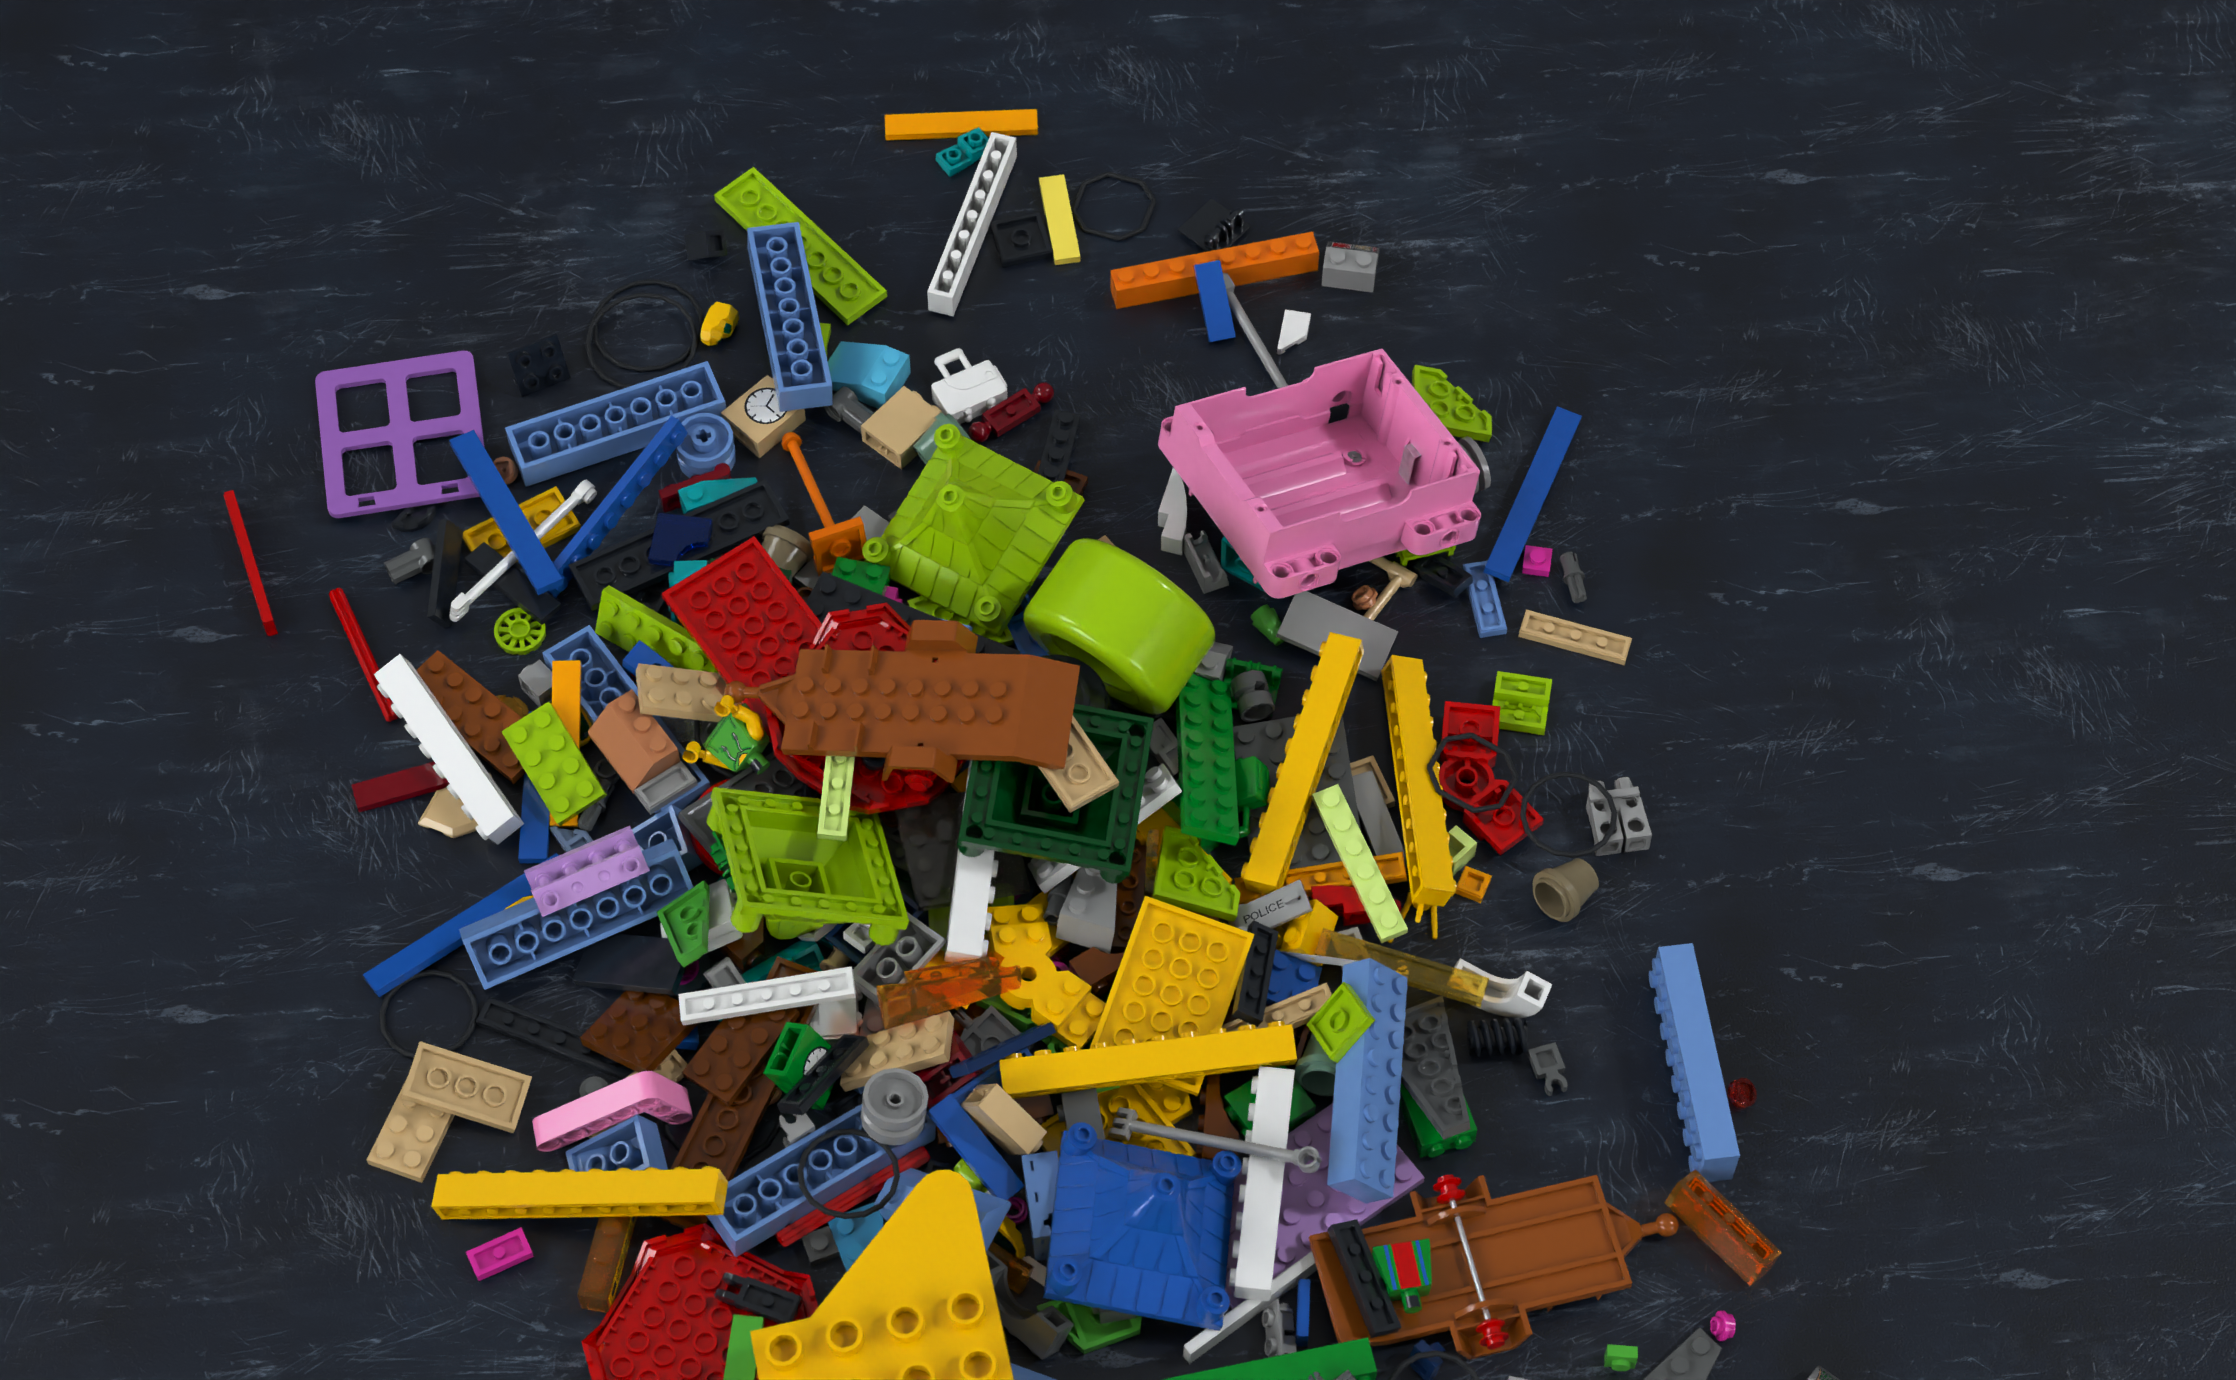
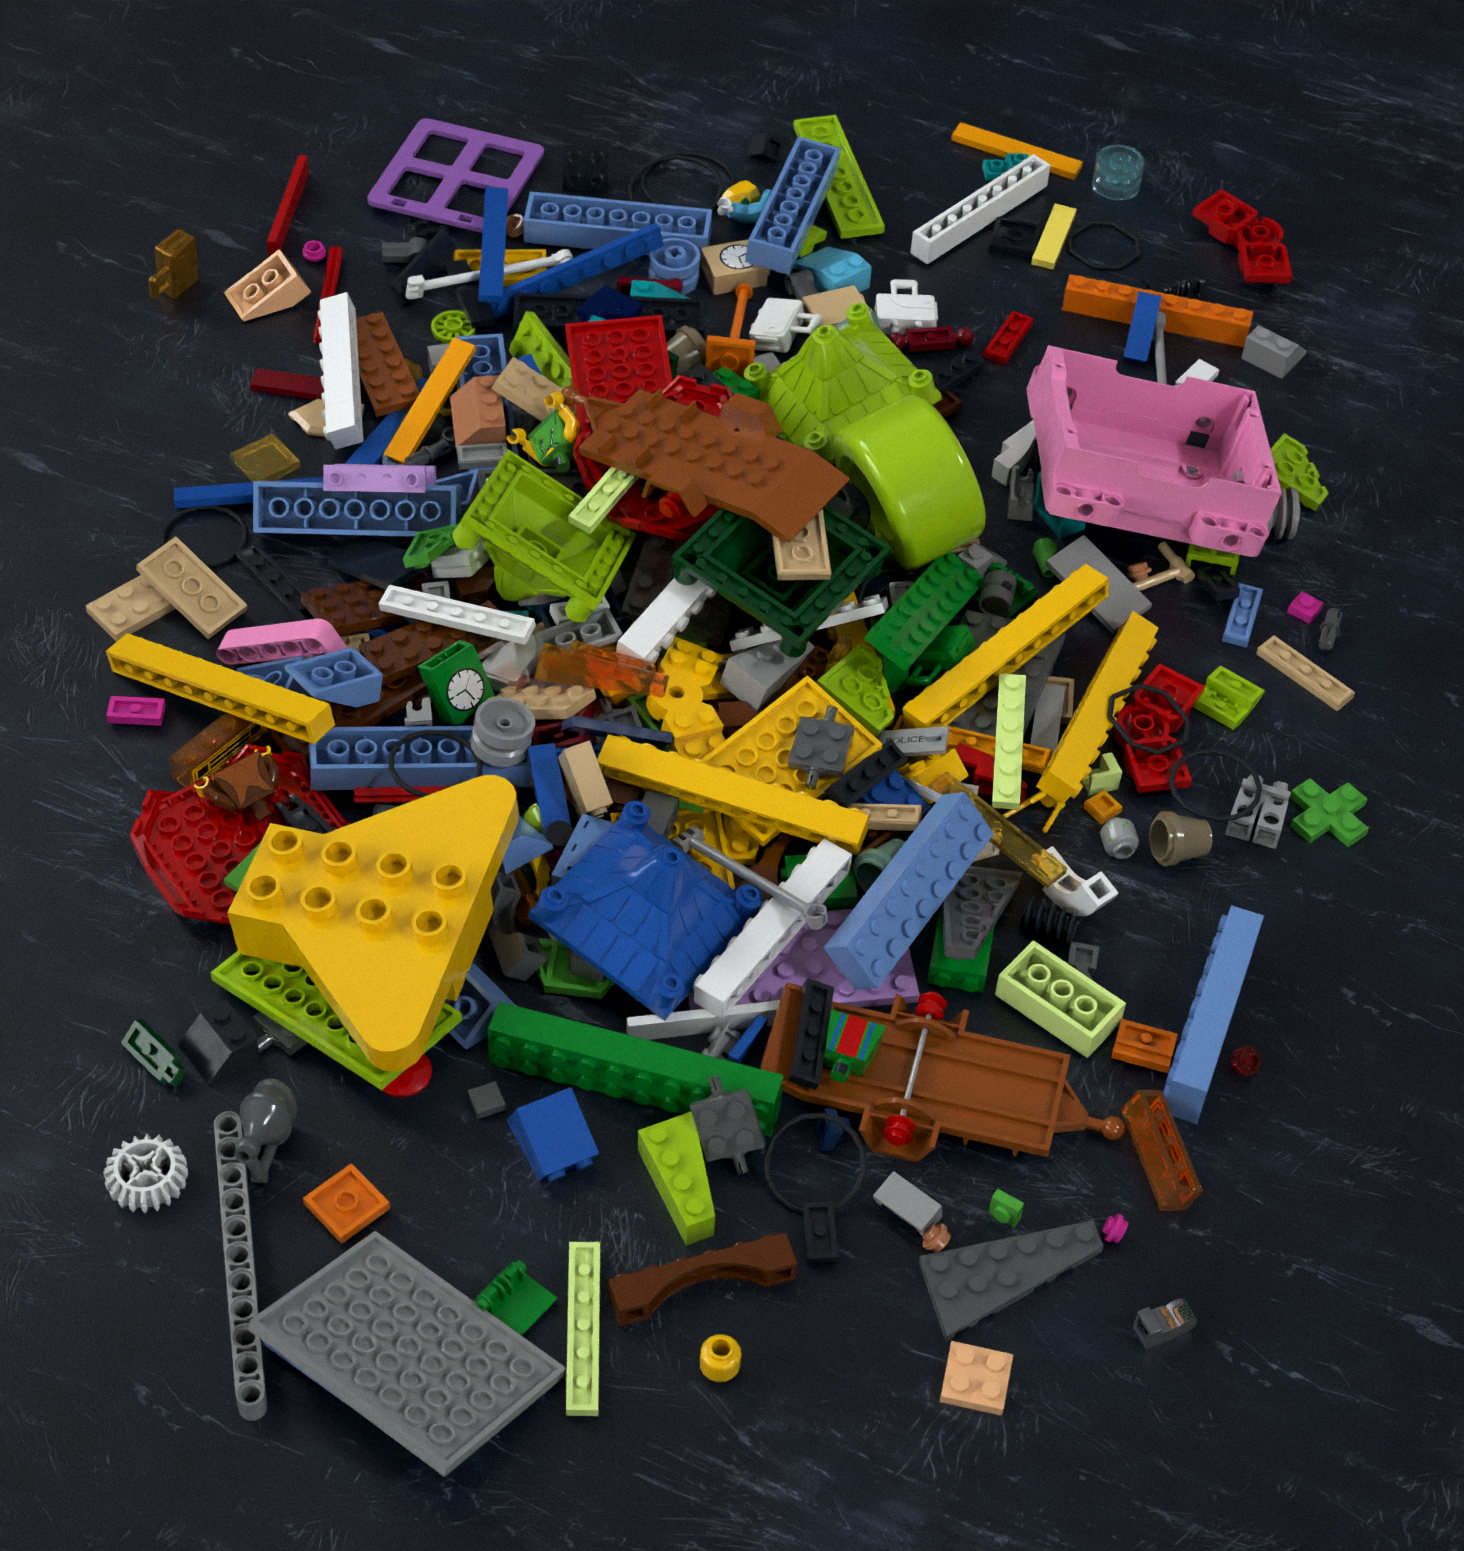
camera: 25 degrees right, 10 degrees down
(188, 704) = (174, 265): none -> pearl gold piece
(298, 680) = (267, 288): none -> light nougat slope
(310, 601) = (313, 251): none -> dark pink plate
(432, 892) = (265, 459): none -> clear yellow tile
(554, 763) = (411, 409): lime plate -> none
(677, 1289) = (244, 785): none -> torso
(695, 1126) = (339, 677): none -> medium blue slope
(739, 339) = (743, 213): none -> medium azure arm
(823, 1074) = (464, 689): black tile -> none
(853, 469) = (779, 324): none -> white piece
(1009, 1186) = (559, 834): none -> black tile
(1082, 109) = (1118, 172): none -> clear light blue wheel
(1084, 371) = (1008, 338): none -> red tile
(1201, 968) = (821, 747): none -> dark grey plate
(1262, 129) = (1258, 241): none -> red plate
(1340, 1022) = (911, 831): lime tile -> none
(1508, 912) = (1119, 838): none -> light grey head
(1532, 494) = (1329, 559): blue tile -> none
(1553, 1117) = (1060, 999): none -> yellowish green brick
(1648, 1124) = (1144, 1045): none -> orange plate
(1676, 785) = (1328, 812): none -> bright green plate

